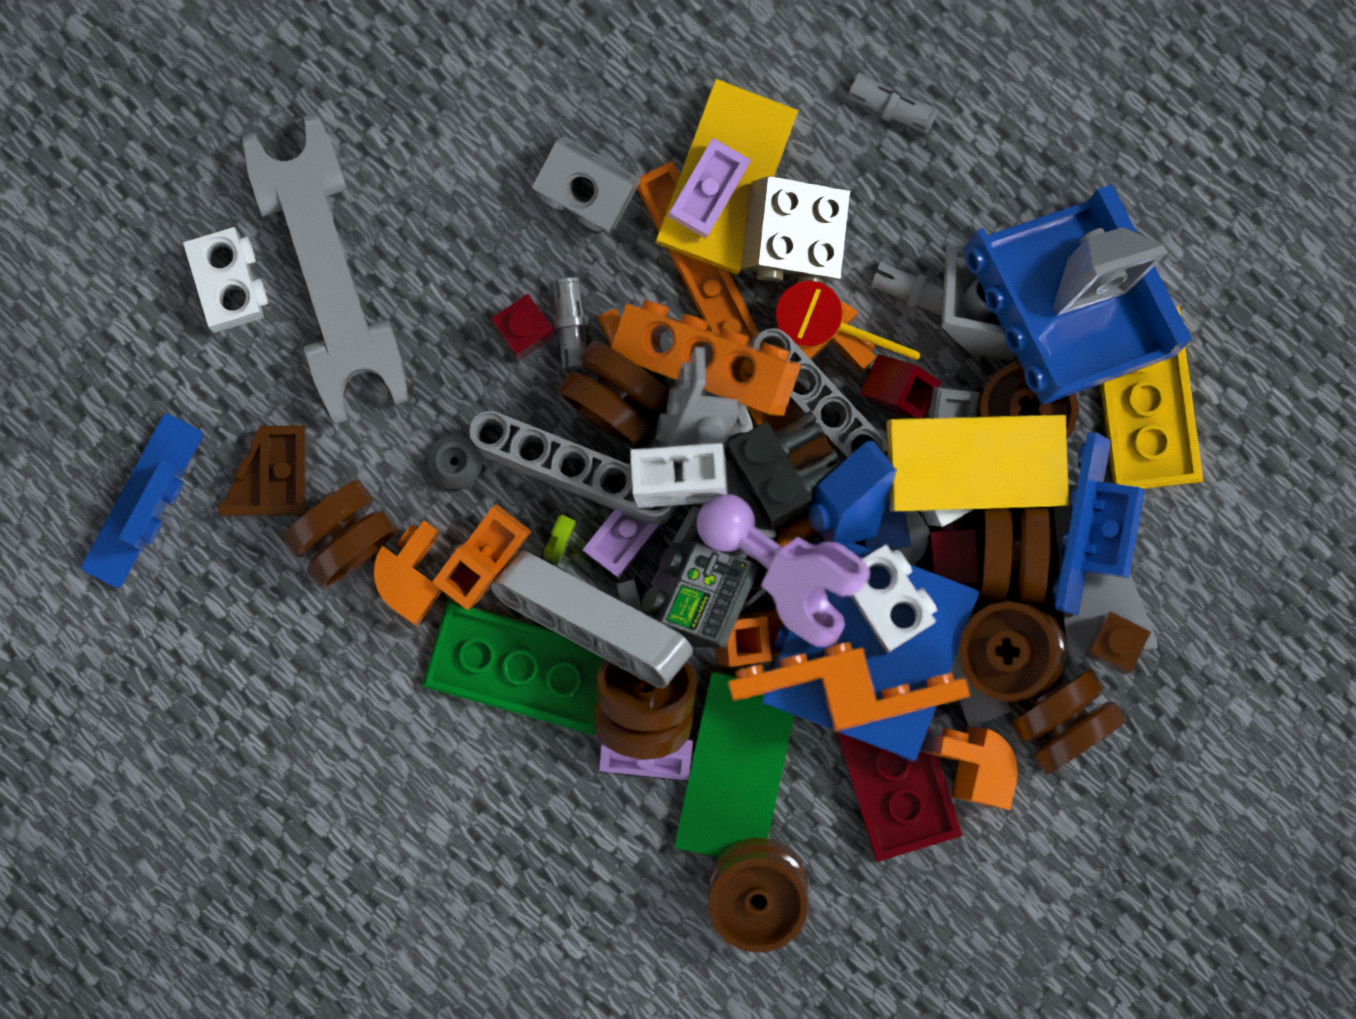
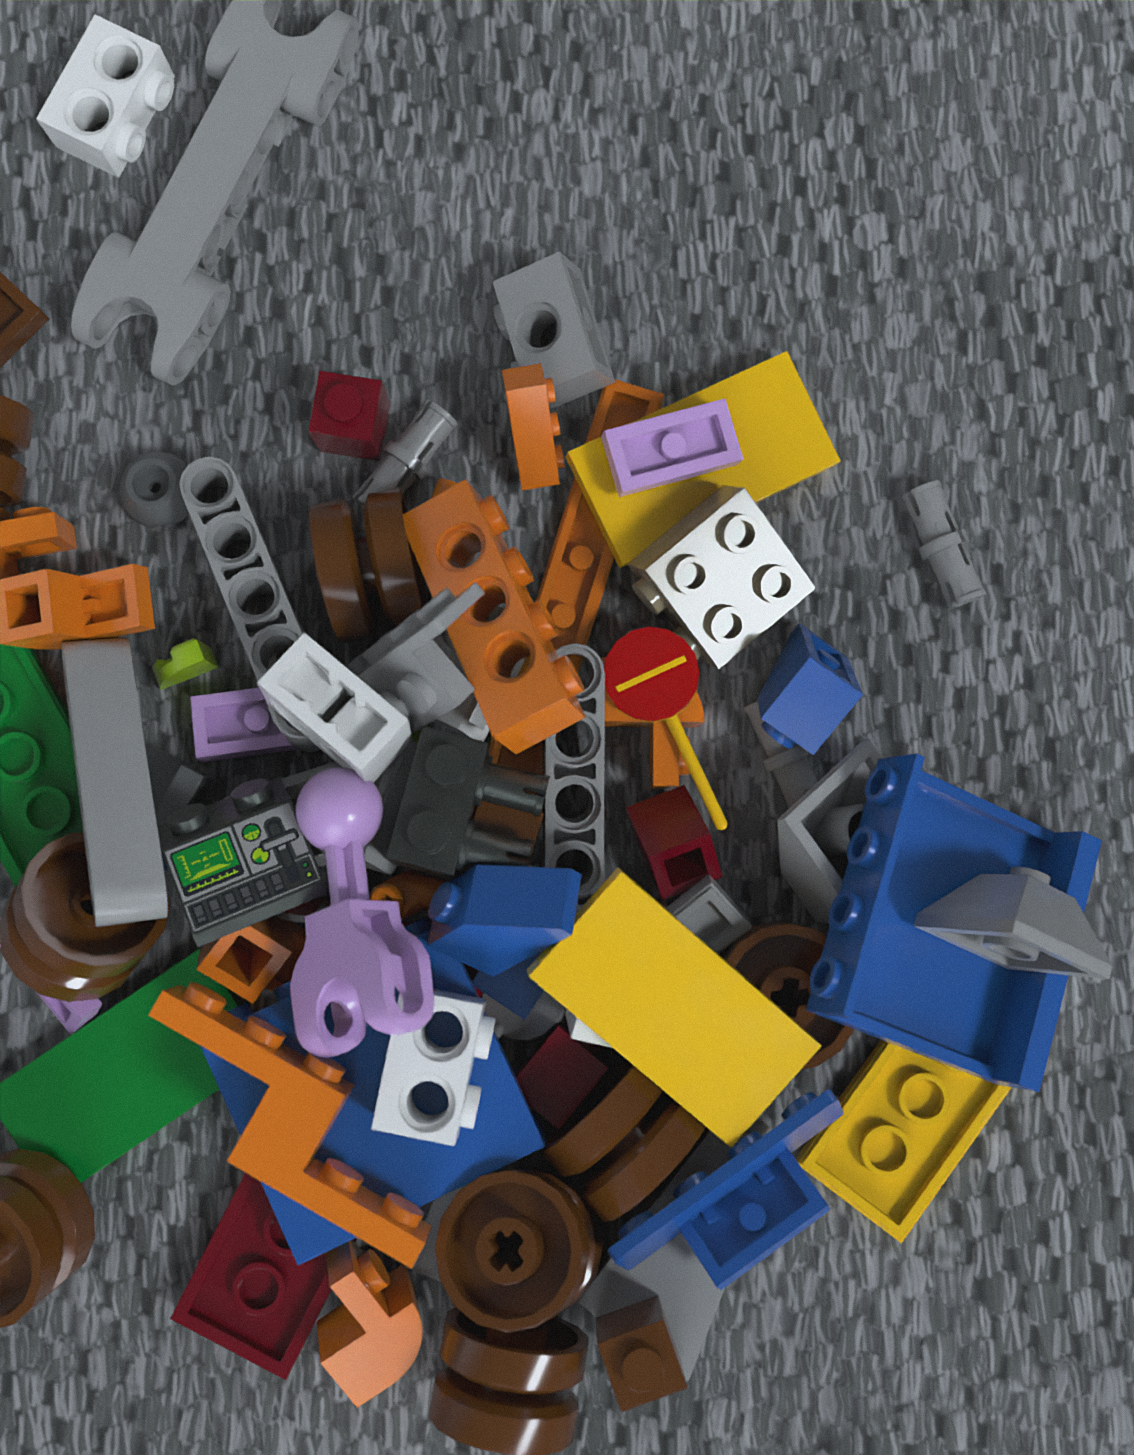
camera: 45 degrees right, 0 degrees up
(626, 244) = (533, 426): none -> orange piece
(894, 247) = (807, 691): none -> blue slope

